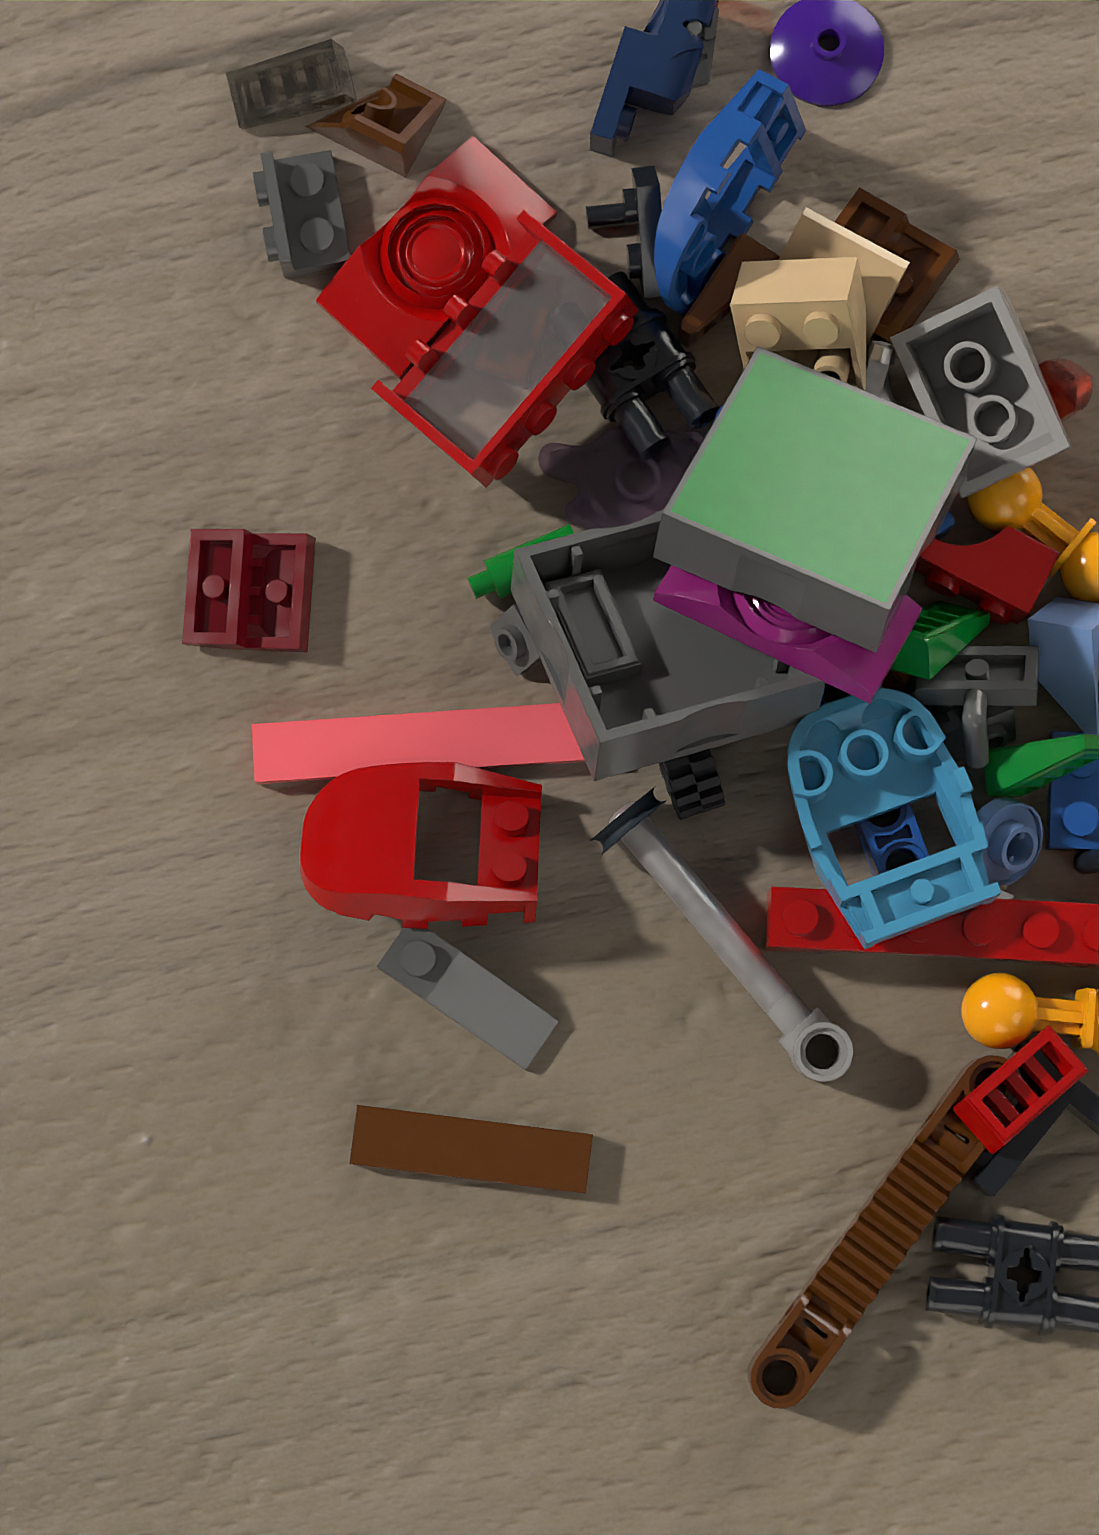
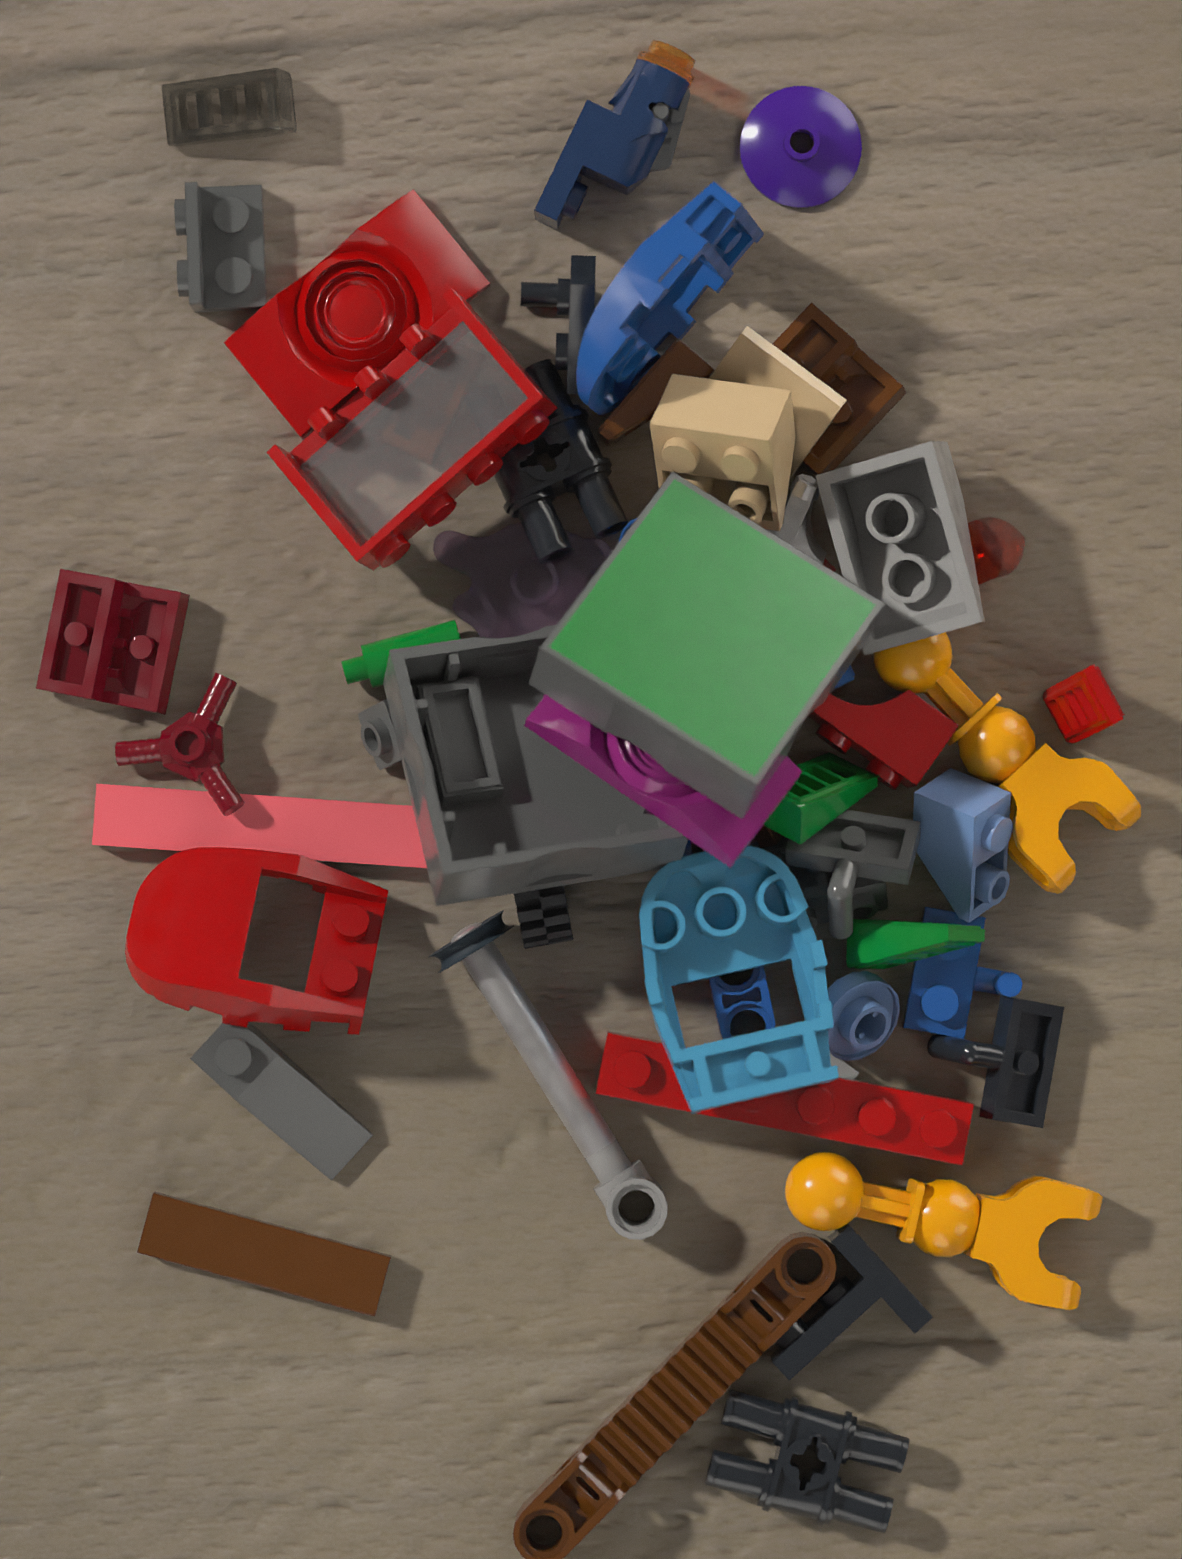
camera: 10 degrees right, 5 degrees up
(338, 676) = (192, 747): none -> dark red piece
(386, 124) = (323, 161): reddish brown slope -> none
(981, 1119) = (788, 1307): red slope -> none

